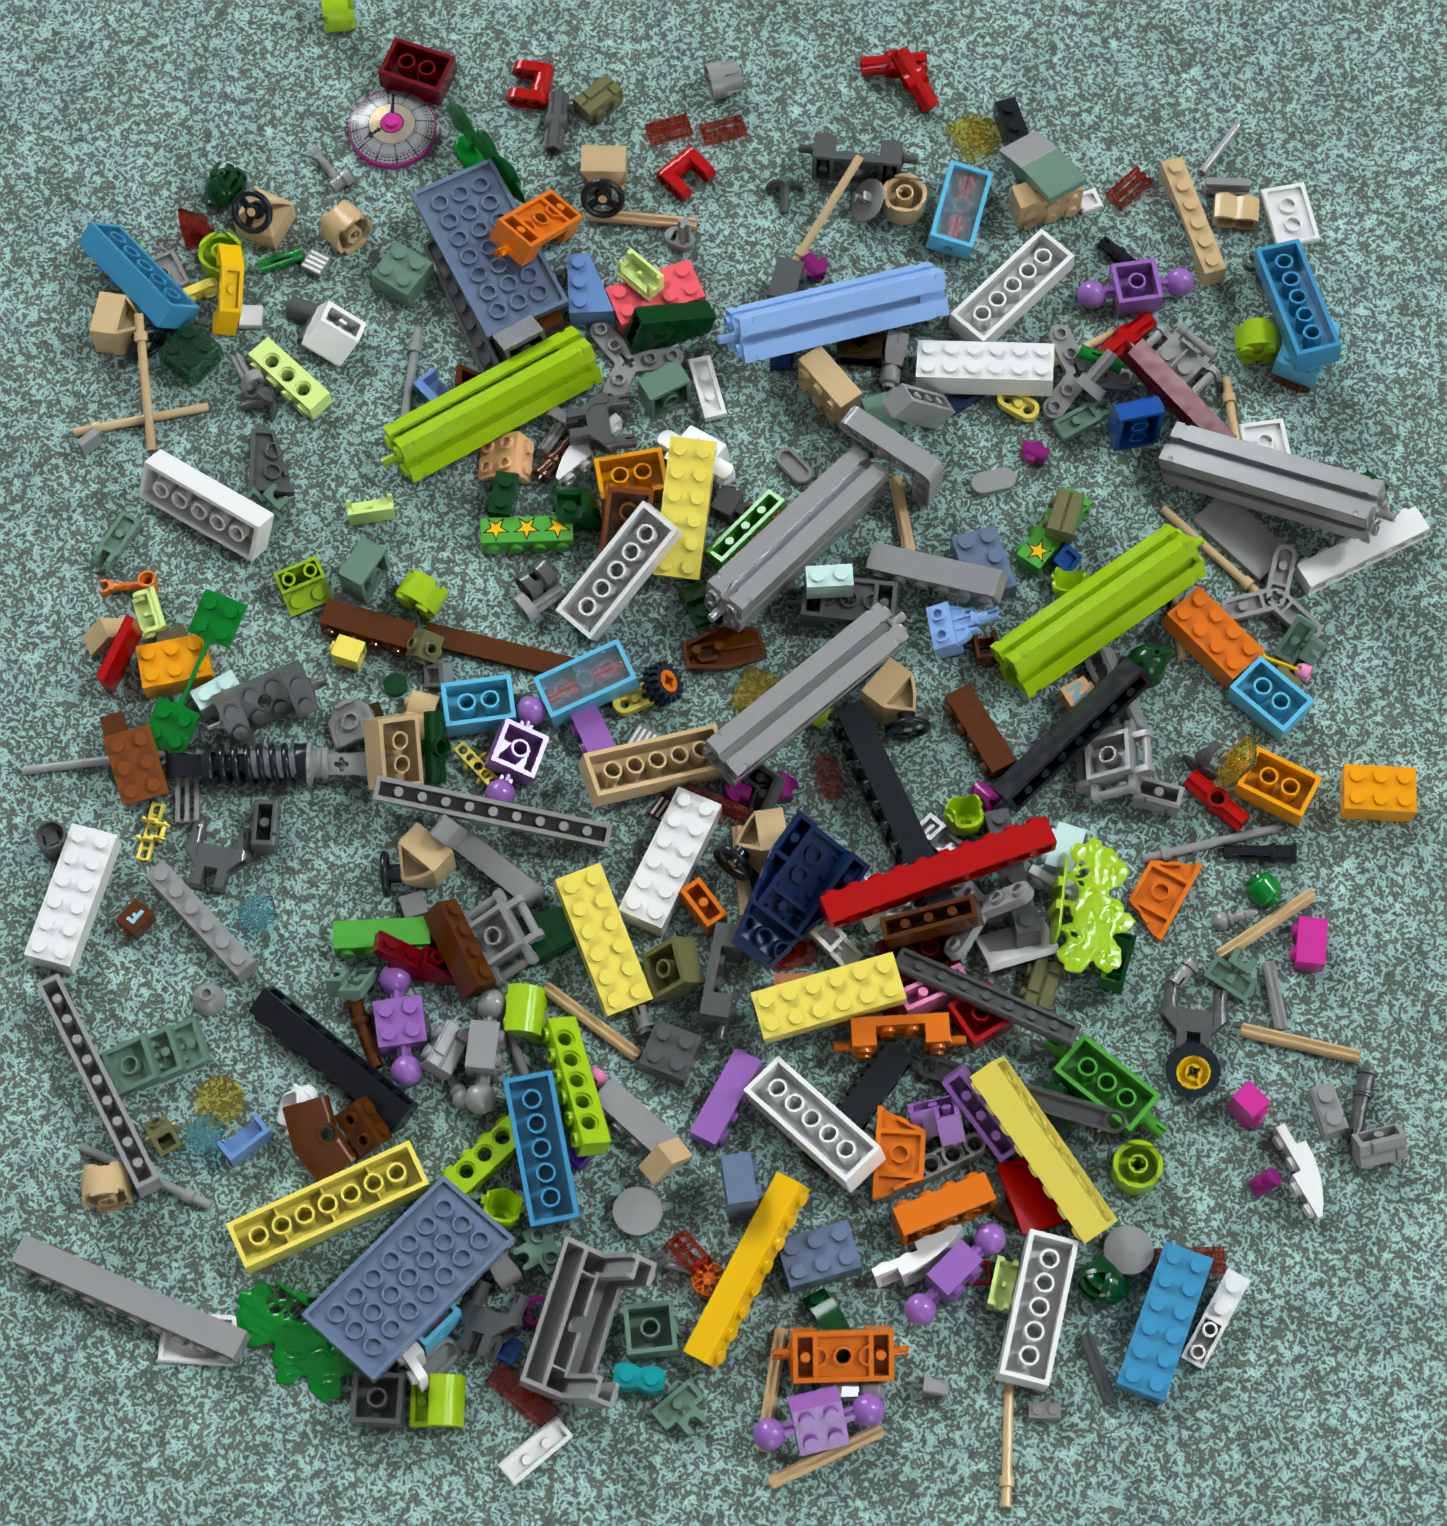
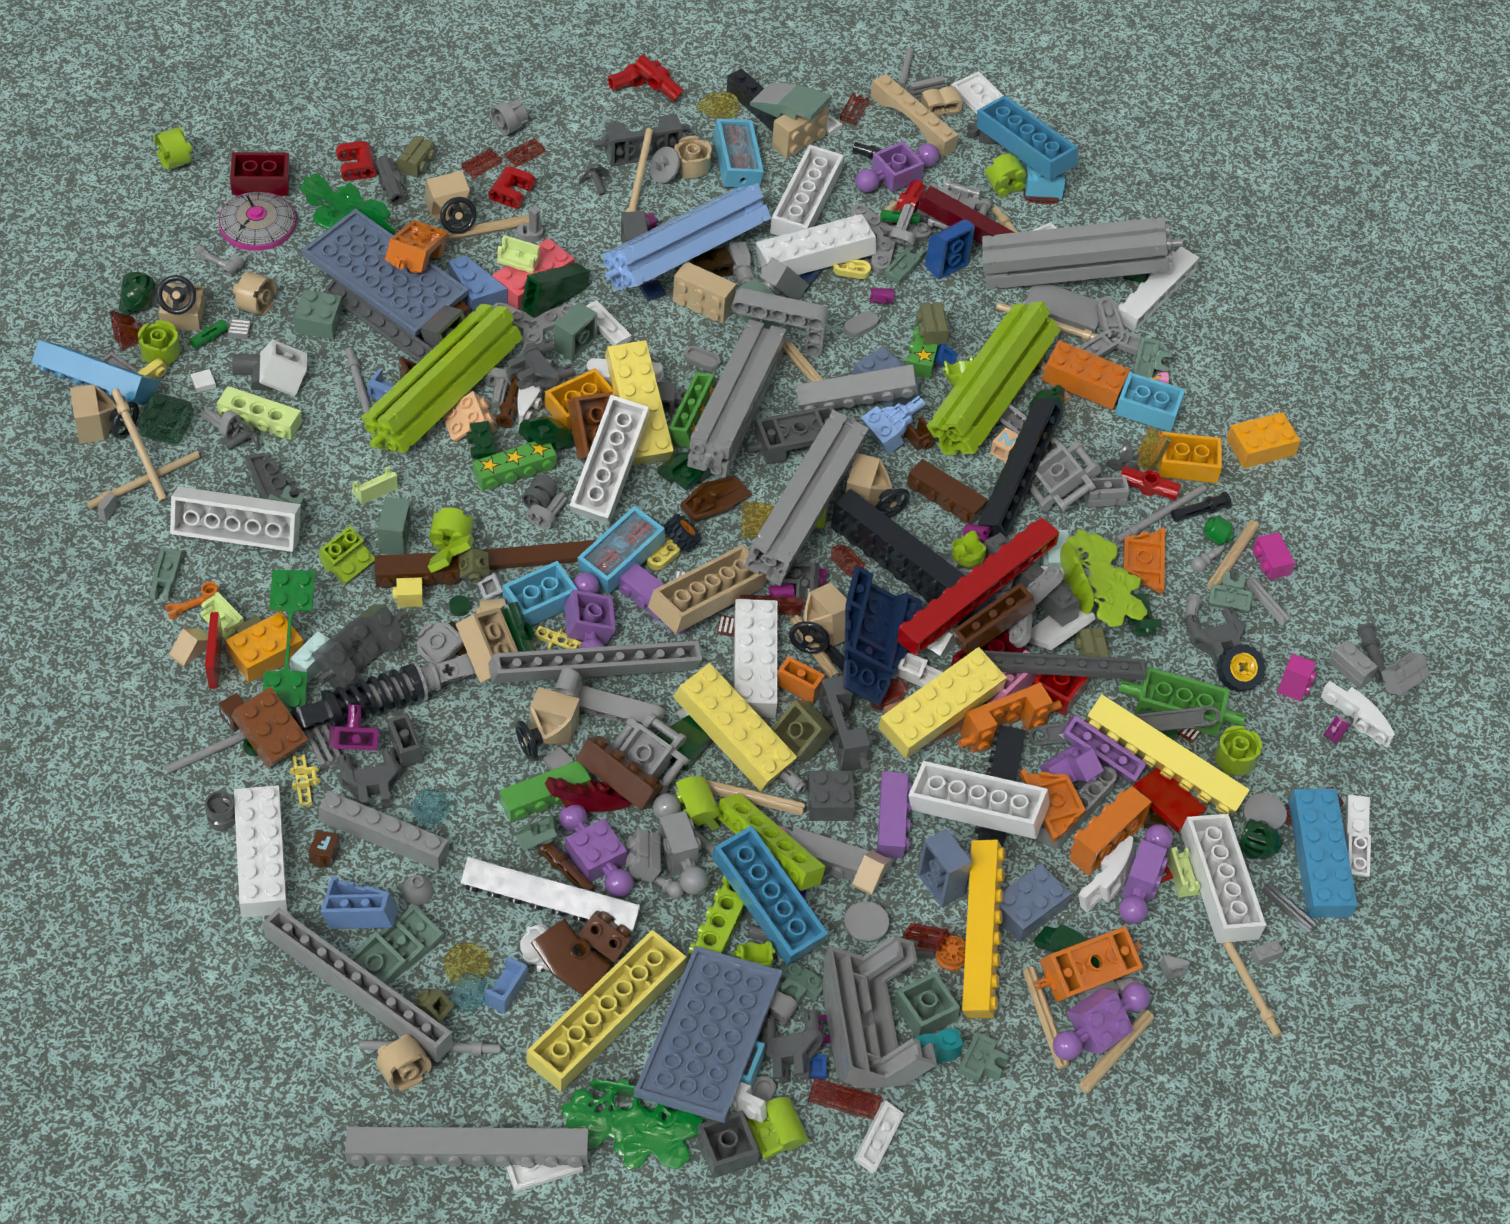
camera: 30 degrees left, 15 degrees down
(134, 999) = (357, 906): none -> medium blue wedge
(215, 804) = (353, 734): none -> magenta brick
(230, 290) = (187, 373): yellow slope -> none
(409, 622) = (443, 558): none -> lime tile
(829, 581) = (780, 416): light aqua brick -> none
(1300, 1043) = (1304, 626): tan axle -> none

